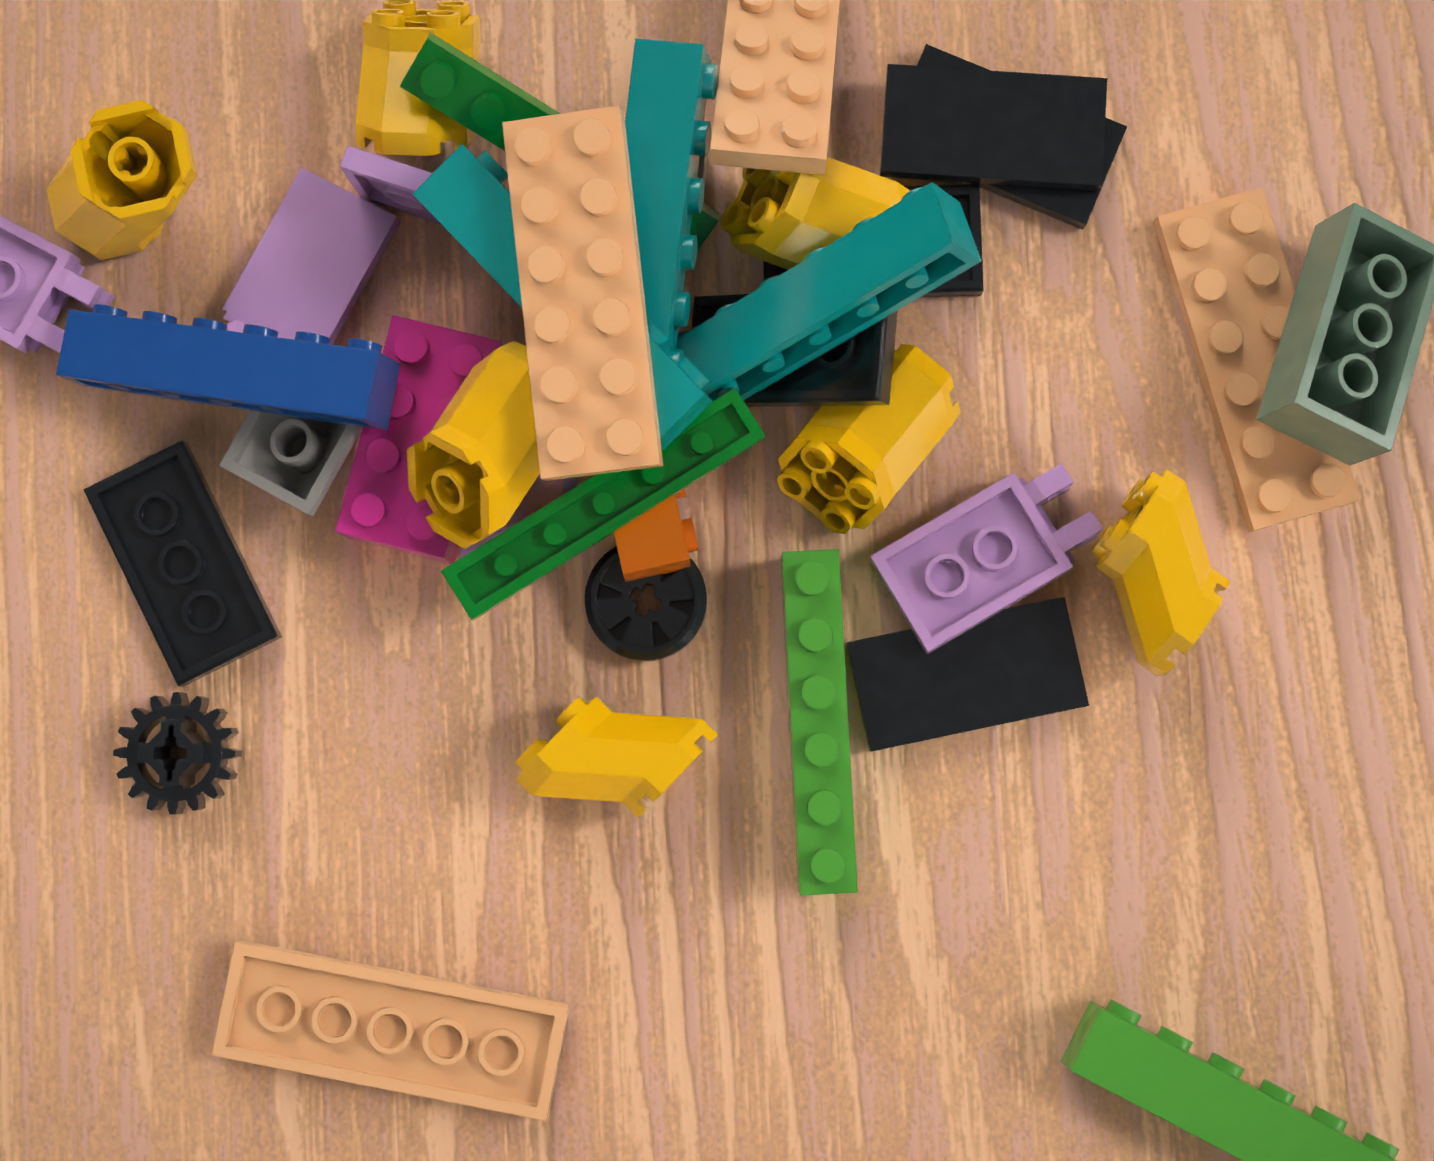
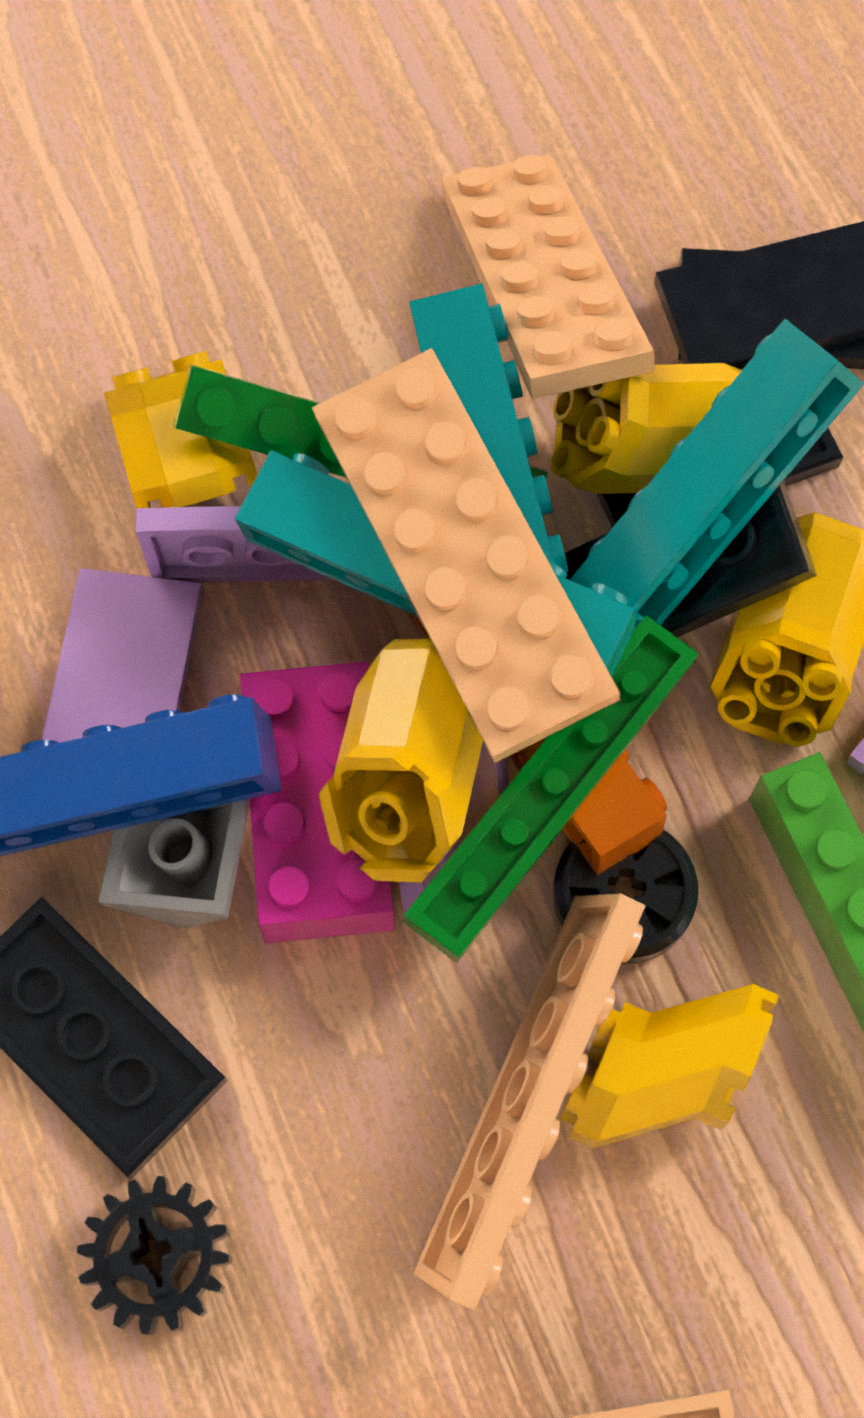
camera: 25 degrees left, 15 degrees down
(506, 727) = (523, 1105): none -> light nougat plate

